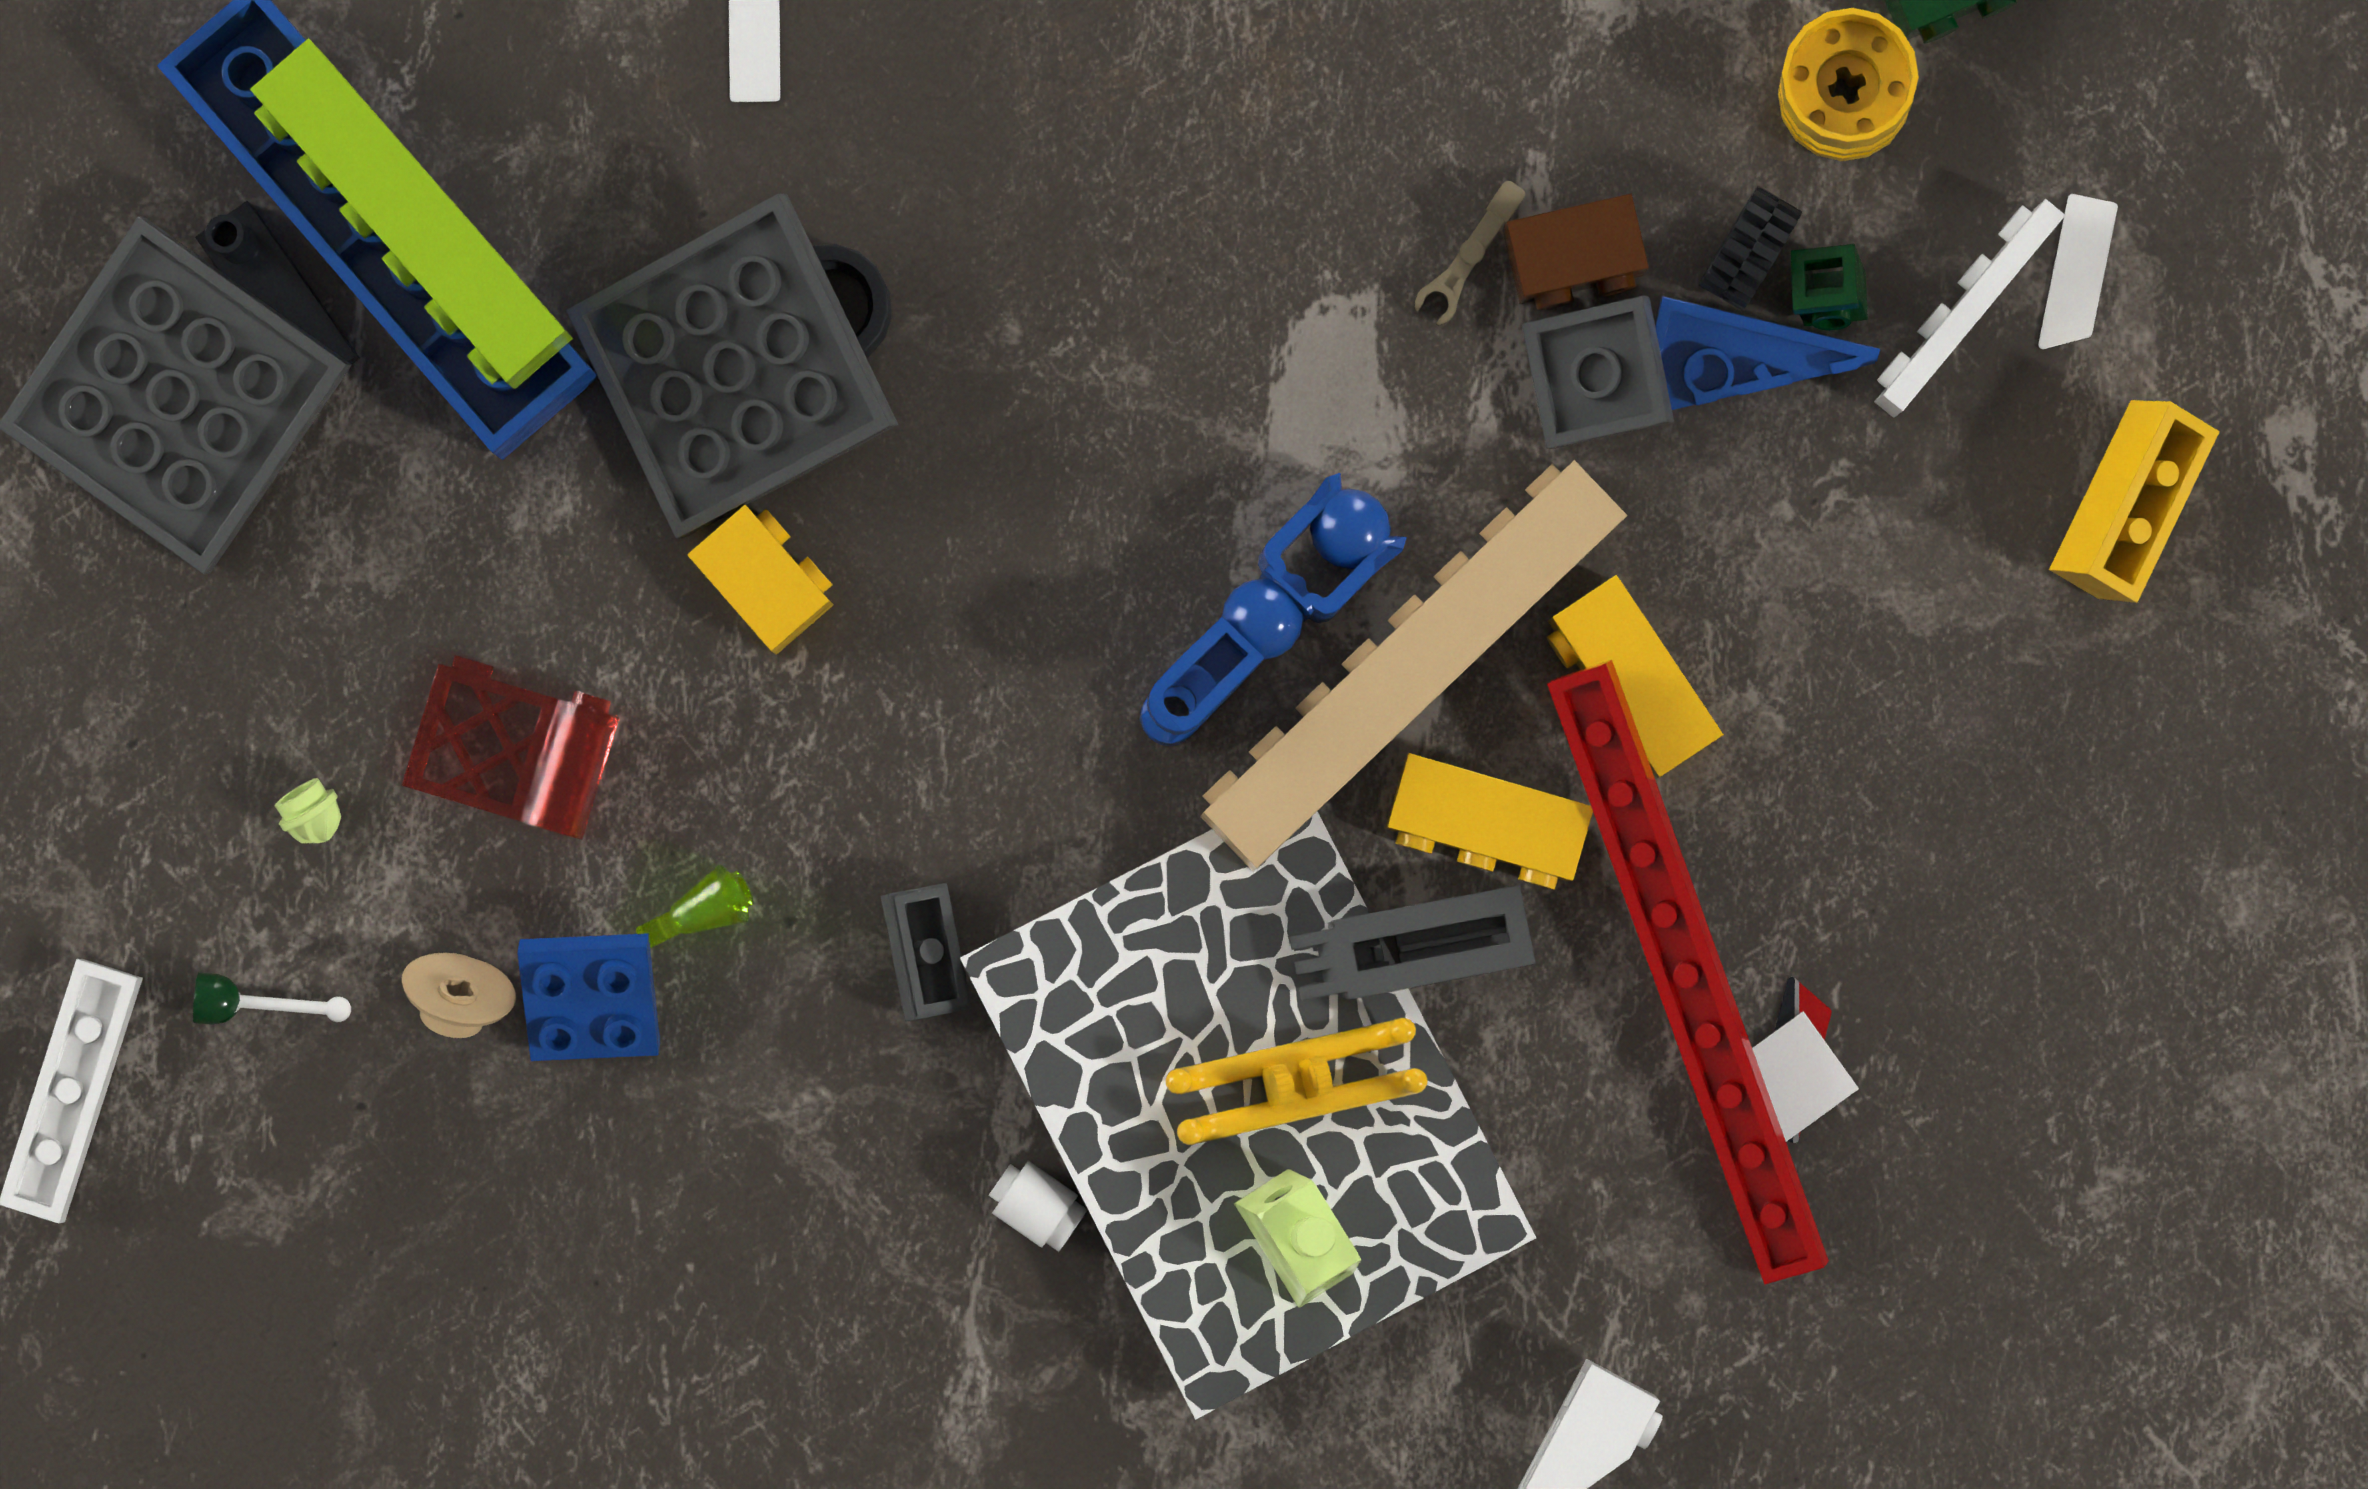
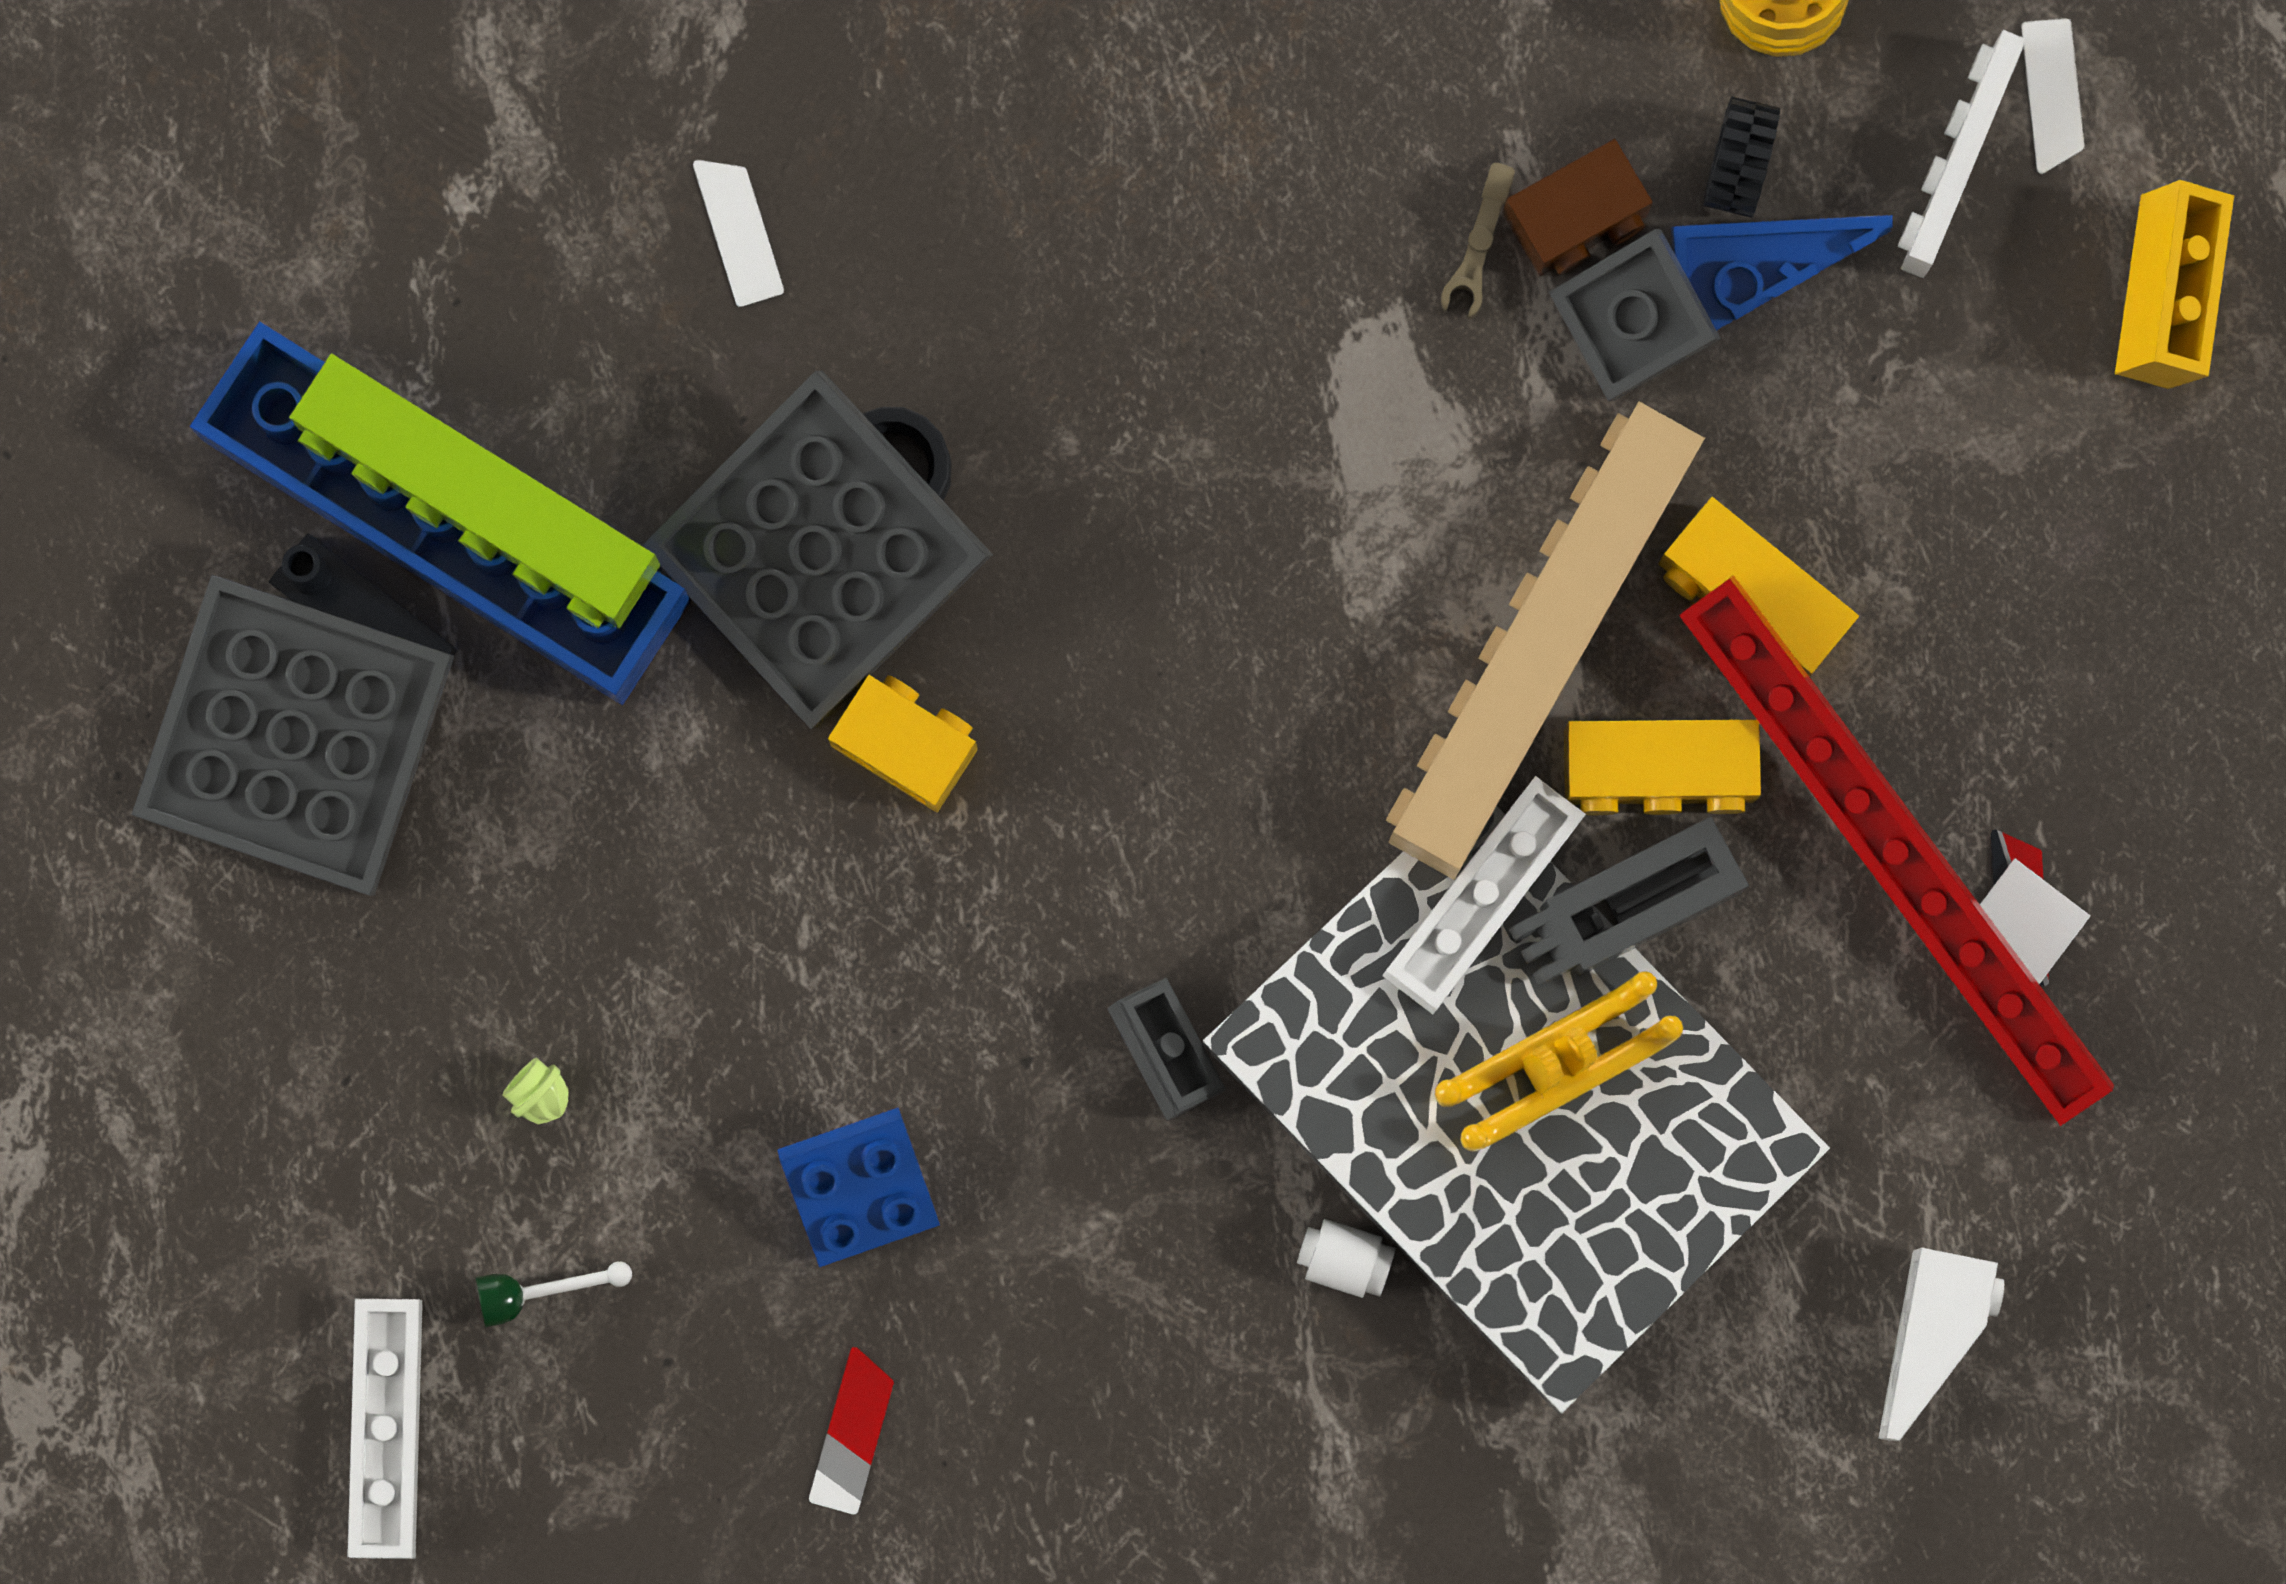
camera: 15 degrees left, 5 degrees down
(457, 993) = (731, 1222): tan piece -> none
(516, 1229) = (852, 1435): none -> sticker
(562, 758) = (764, 965): clear red piece -> none
(712, 903) = (947, 1065): clear neon green cone -> none
(1268, 613) = (1395, 630): blue piece -> none
(1275, 896) = (1483, 895): none -> white plate
(1299, 1235) = (1608, 1206): yellowish green torso -> none
(1829, 298) = (1831, 182): dark green brick -> none

